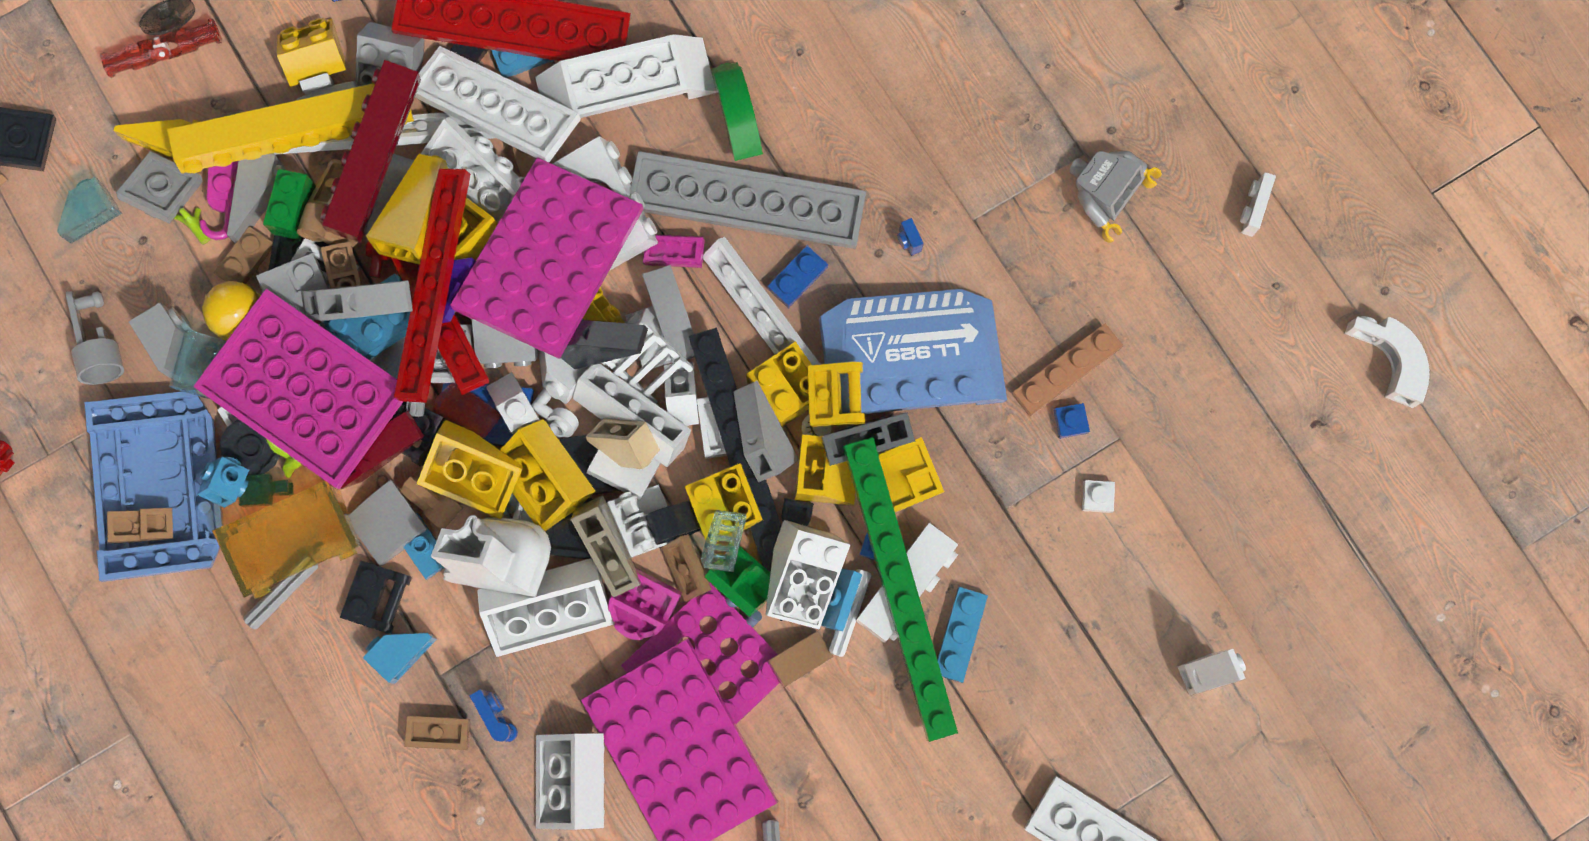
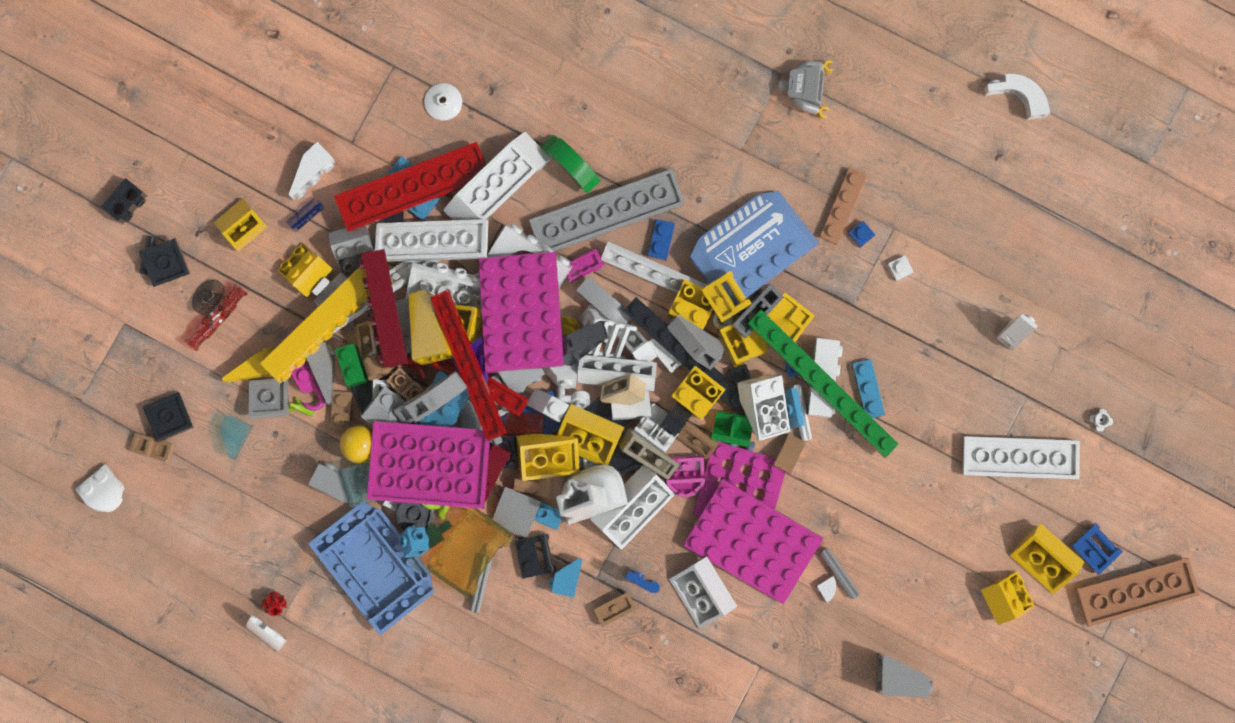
camera: 30 degrees left, 5 degrees up
(96, 359) = (297, 516): light grey piece -> none
(139, 525) = (381, 593): medium nougat slope -> none
(718, 561) = (719, 423): clear light blue slope -> none
(909, 237) = (712, 181): blue plate -> none
(1253, 214) = (894, 41): white plate -> none

